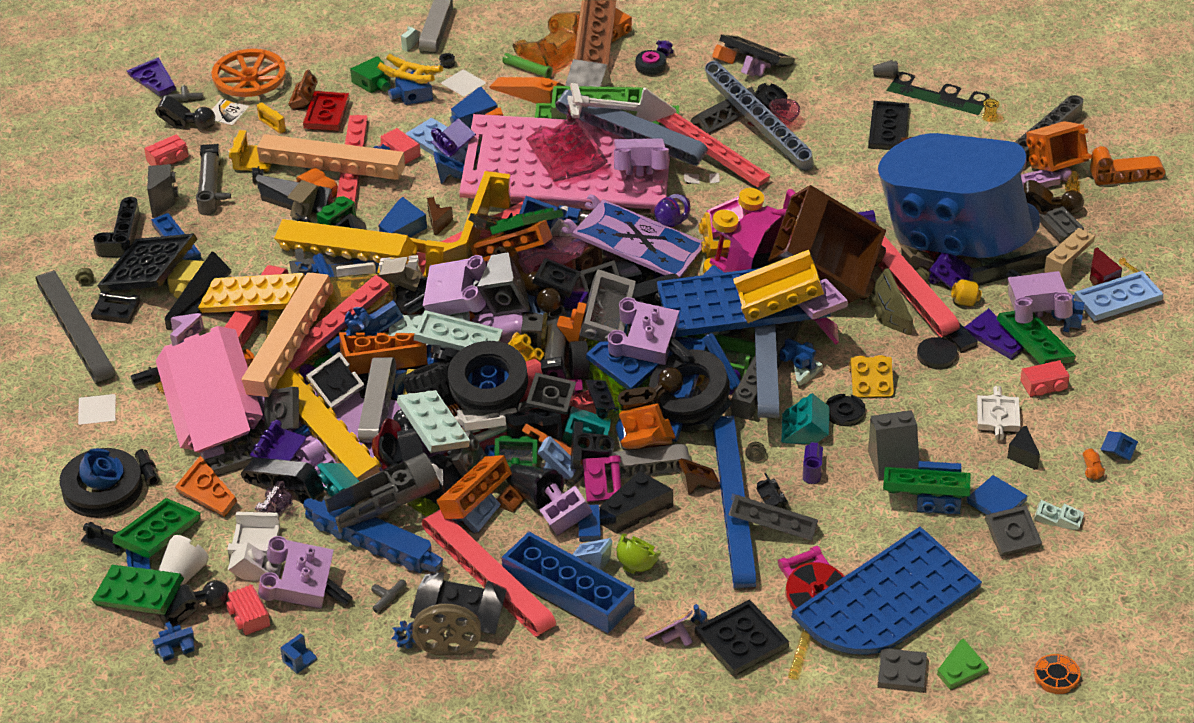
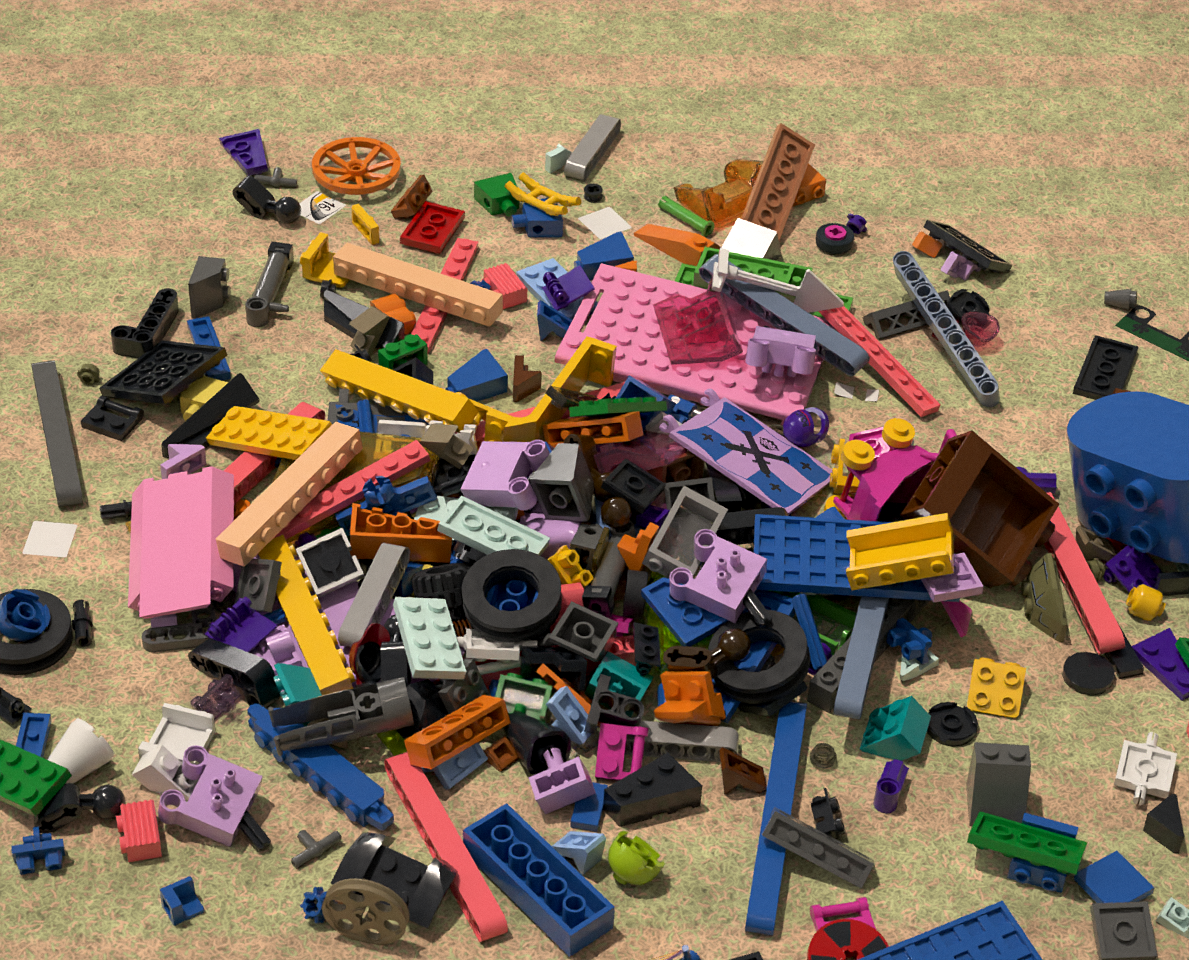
camera: 10 degrees right, 0 degrees up
(156, 527) = (63, 702): green plate -> none
(166, 151) = (231, 242): coral brick -> none
(206, 488) = (141, 664): orange wing -> none

